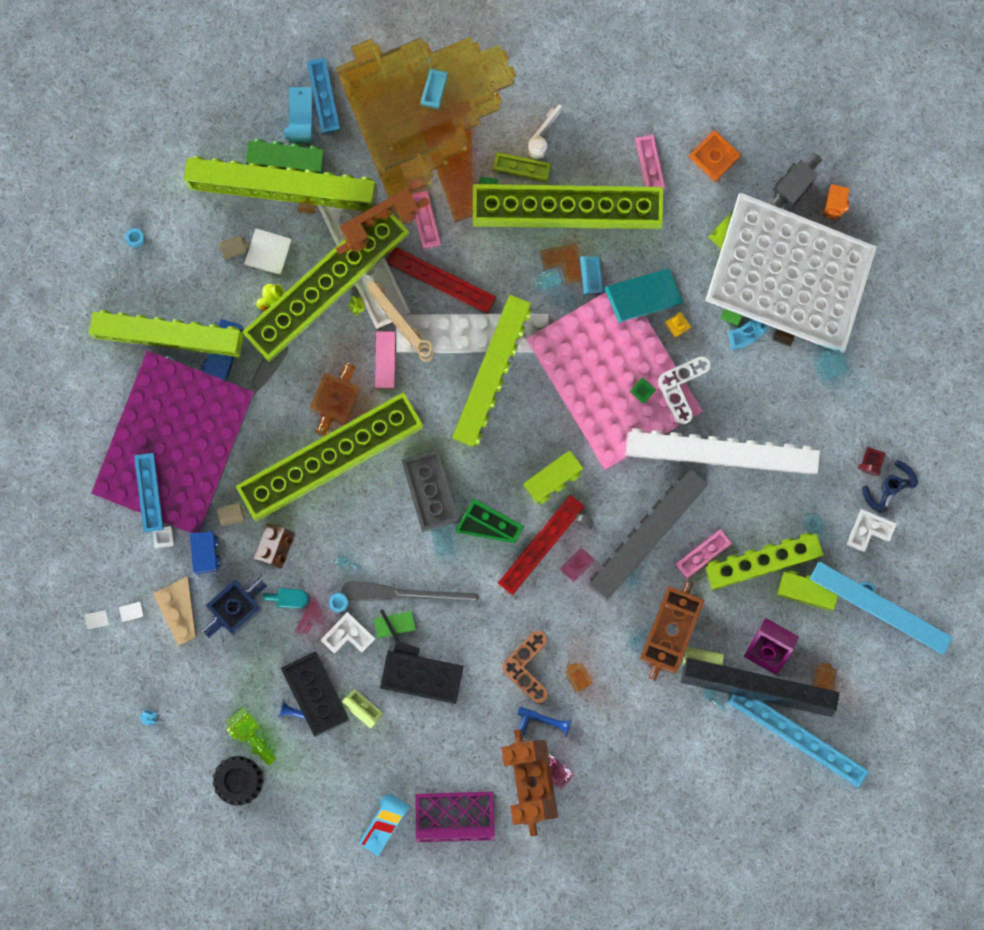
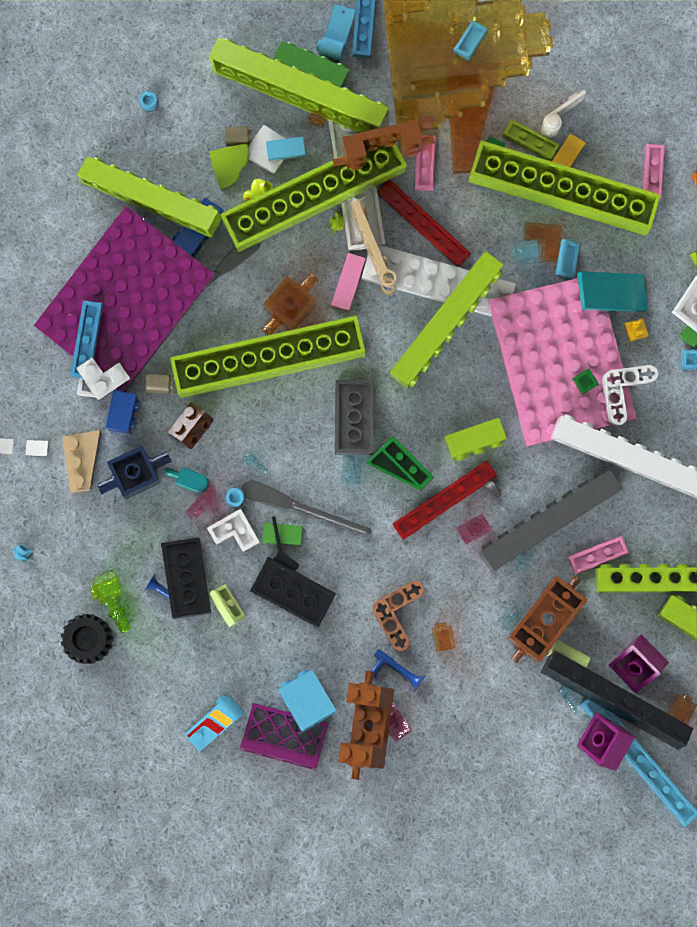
camera: 15 degrees right, 0 degrees up
(175, 530) = (100, 382): none -> white plate
(233, 277) = (228, 164): none -> lime brick
(284, 246) = (285, 148): none -> medium azure tile
(466, 776) = (306, 700): none -> medium azure brick
(562, 168) = (569, 151): none -> yellow tile
(761, 729) = (606, 742): none -> magenta slope

